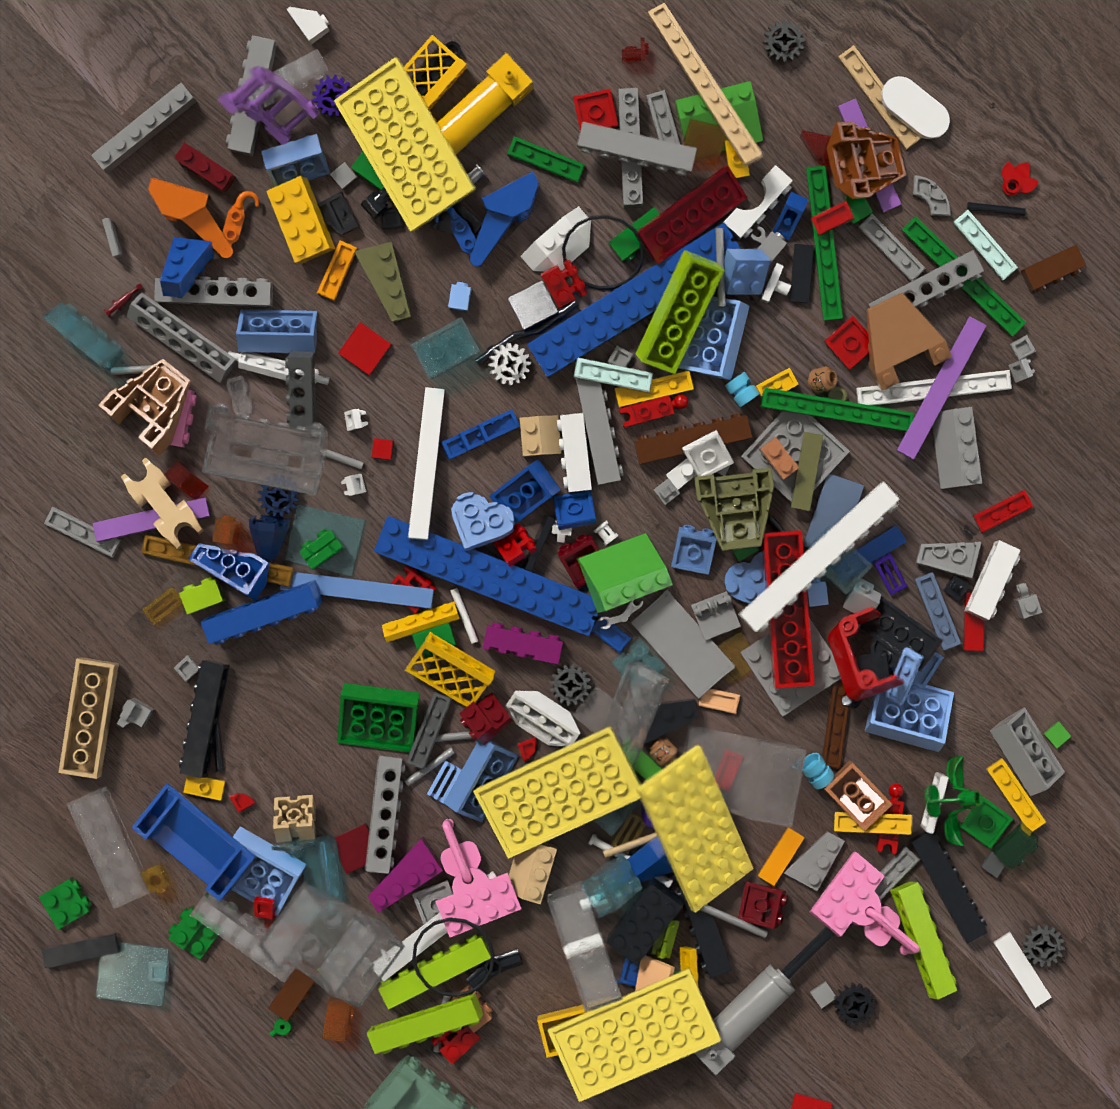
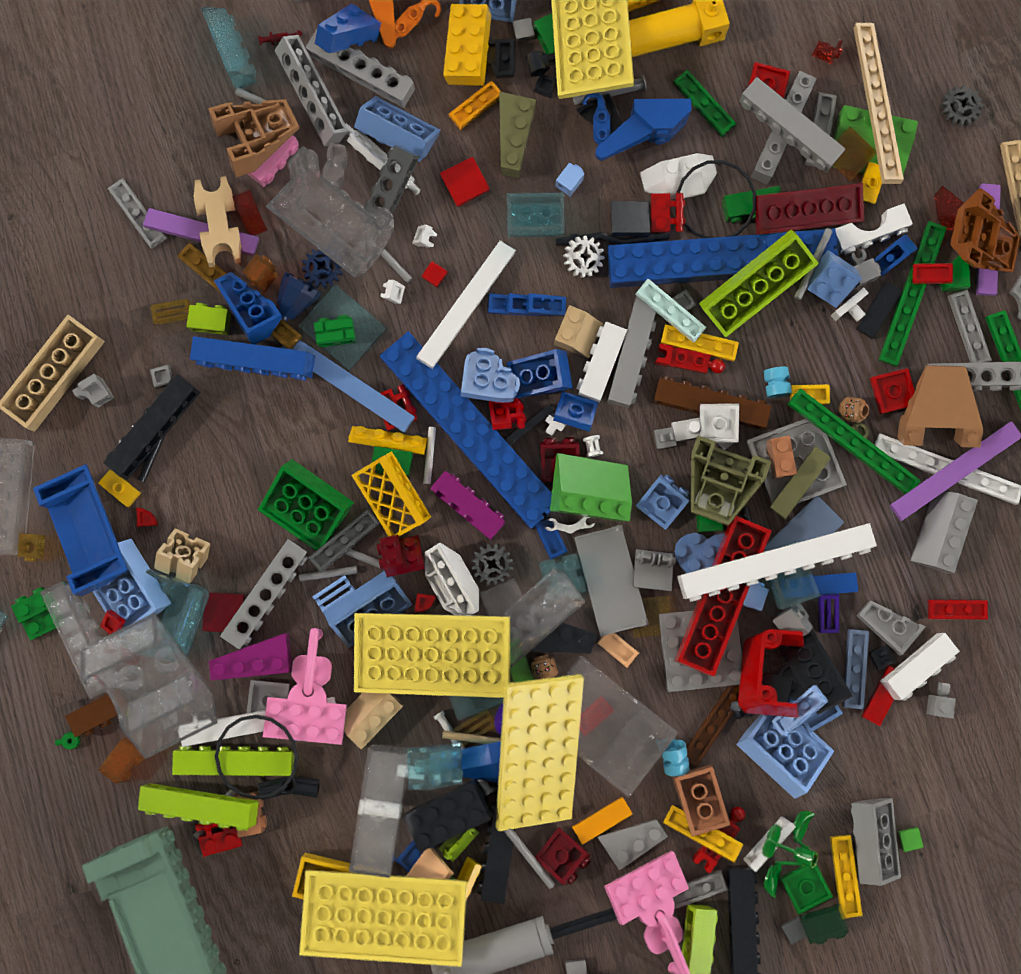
camera: 30 degrees right, 5 degrees down
(716, 340) = (776, 327): light blue slope -> none

